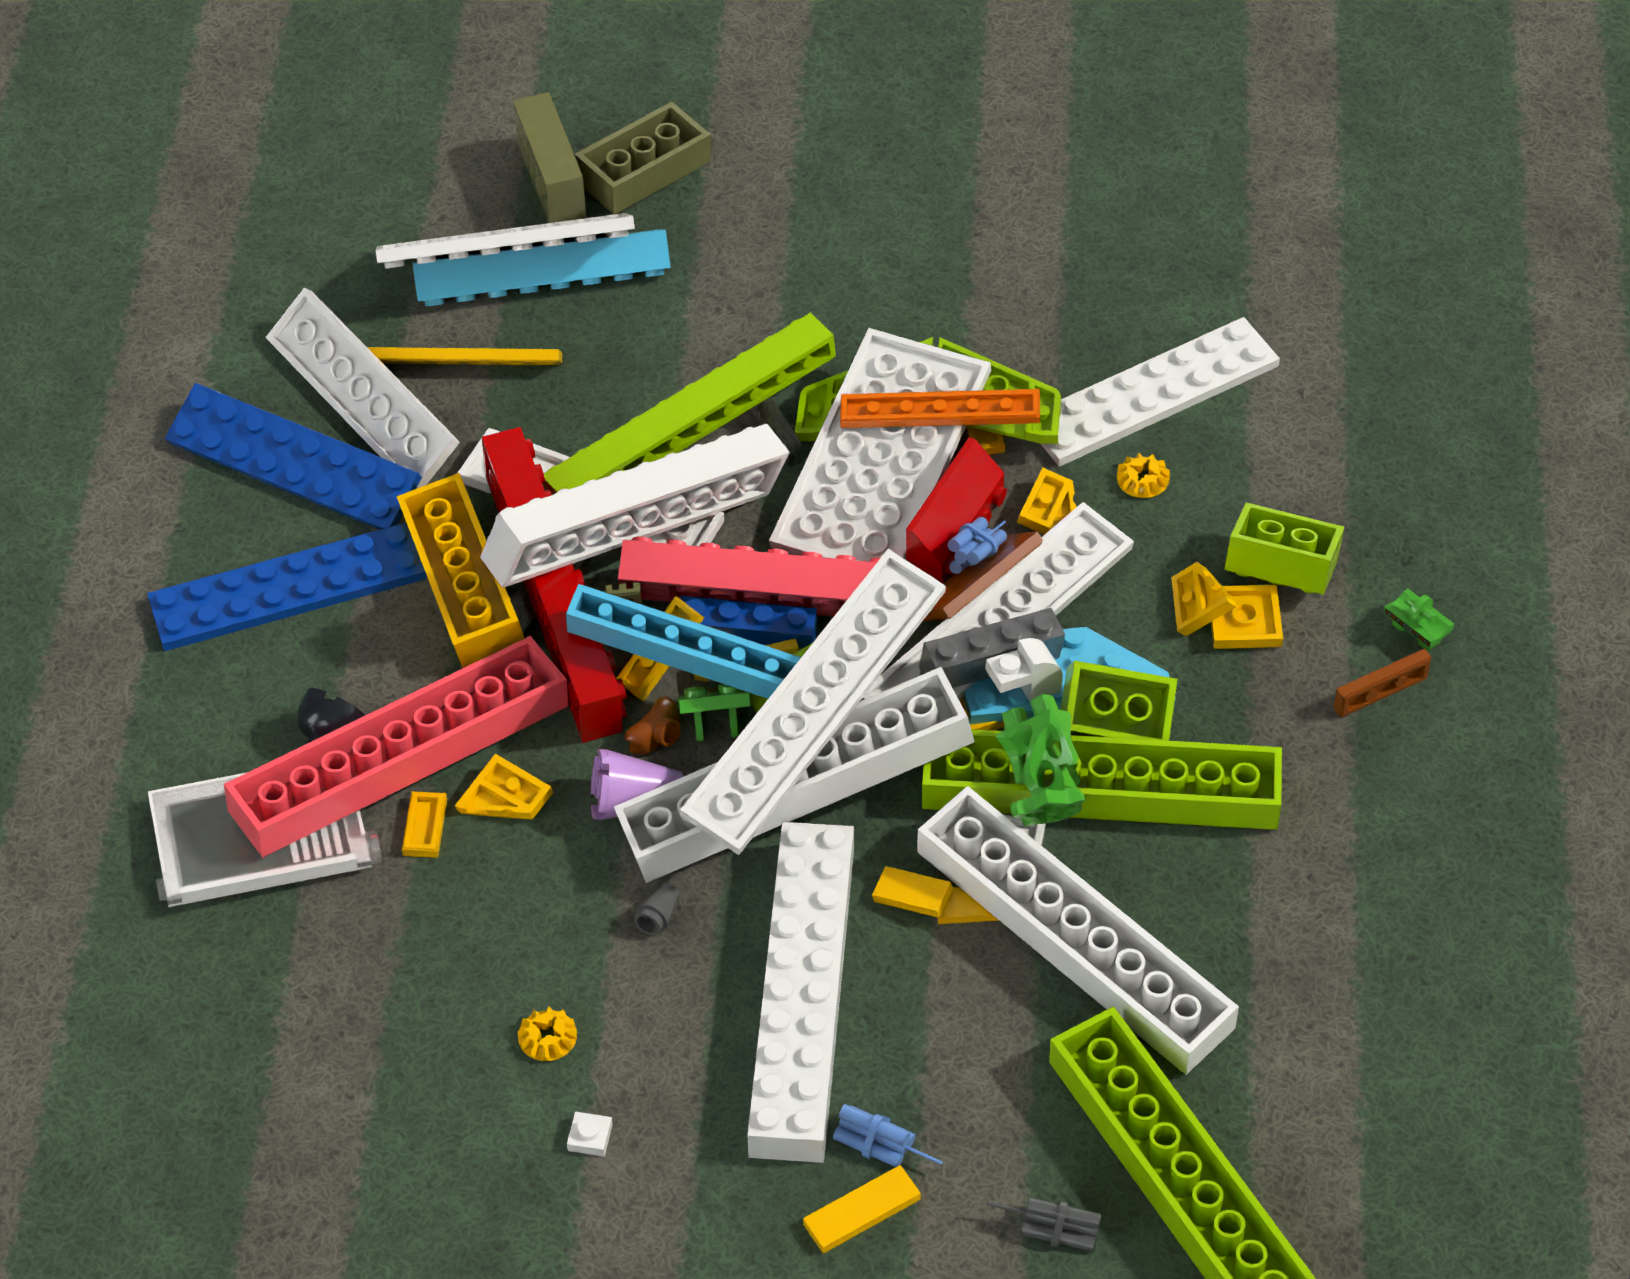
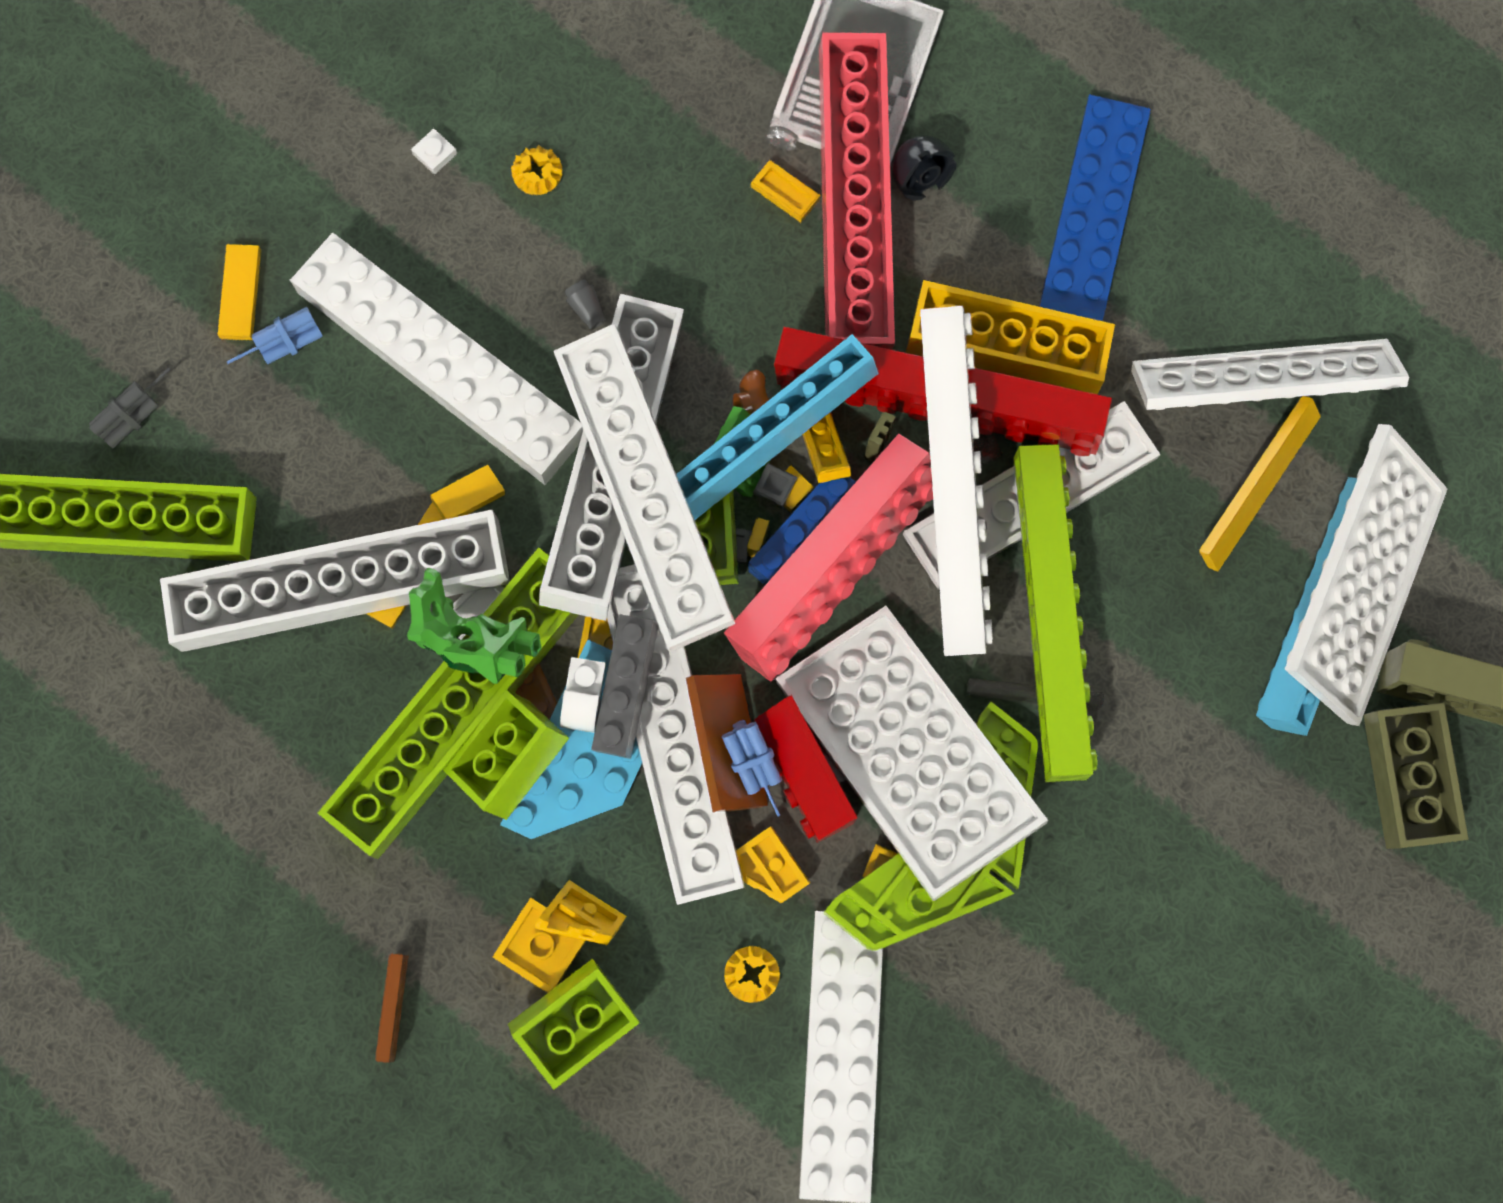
camera: 120 degrees right, 25 degrees up
(292, 457) = (1228, 285): blue plate -> none
(504, 792) = (771, 260): yellow wing -> none
(622, 778) = (703, 346): lavender cone -> none
(940, 408) = (912, 821): orange tile -> none
(1419, 619) = (429, 1088): bright green hips -> none

